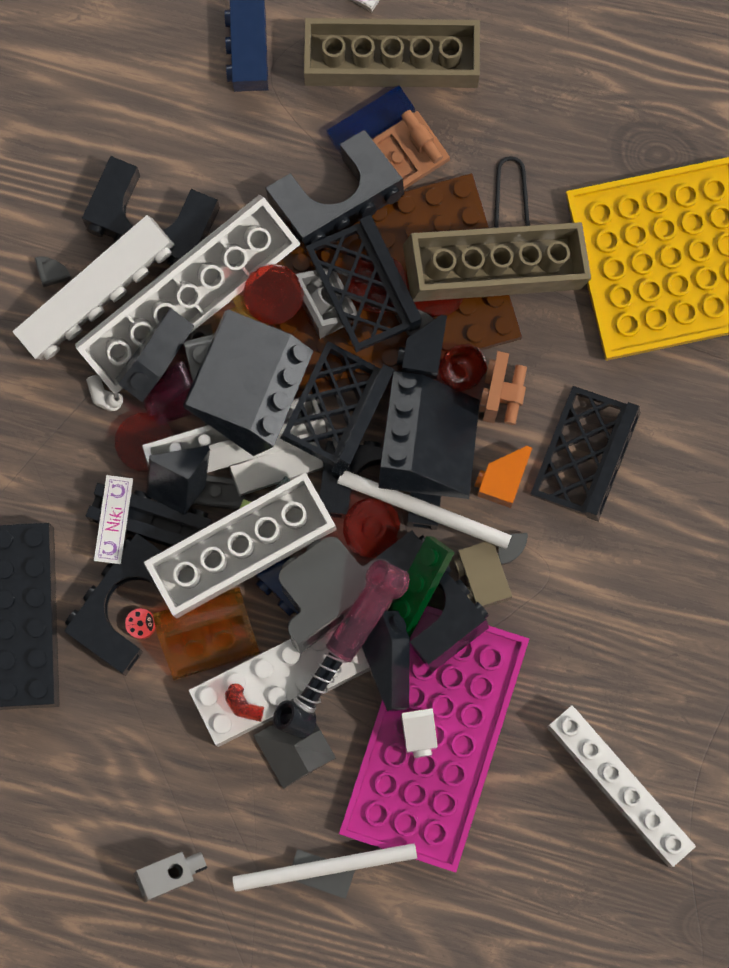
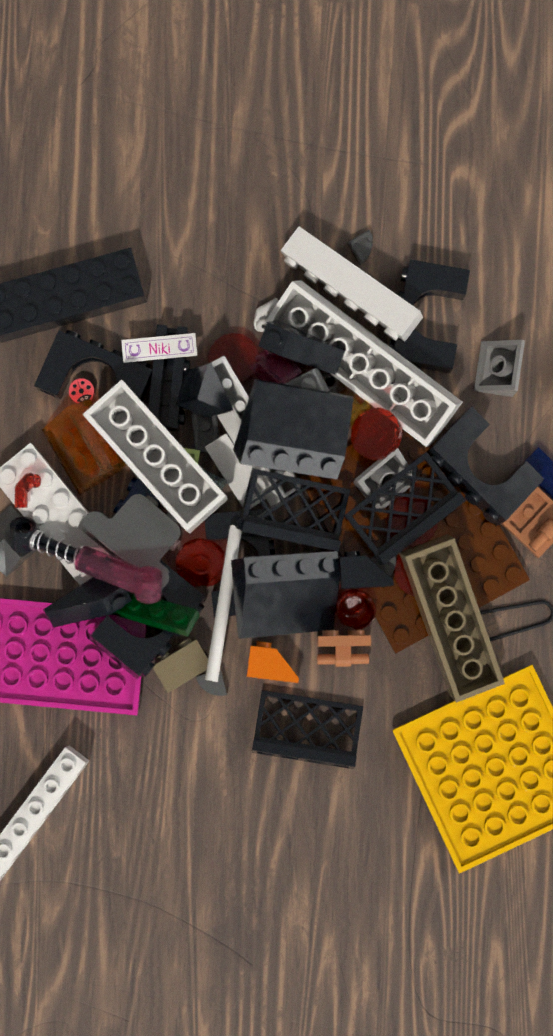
camera: 75 degrees right, 5 degrees up
(227, 149) = (499, 367): none -> light grey slope
(419, 732) = (35, 640): white slope -> none

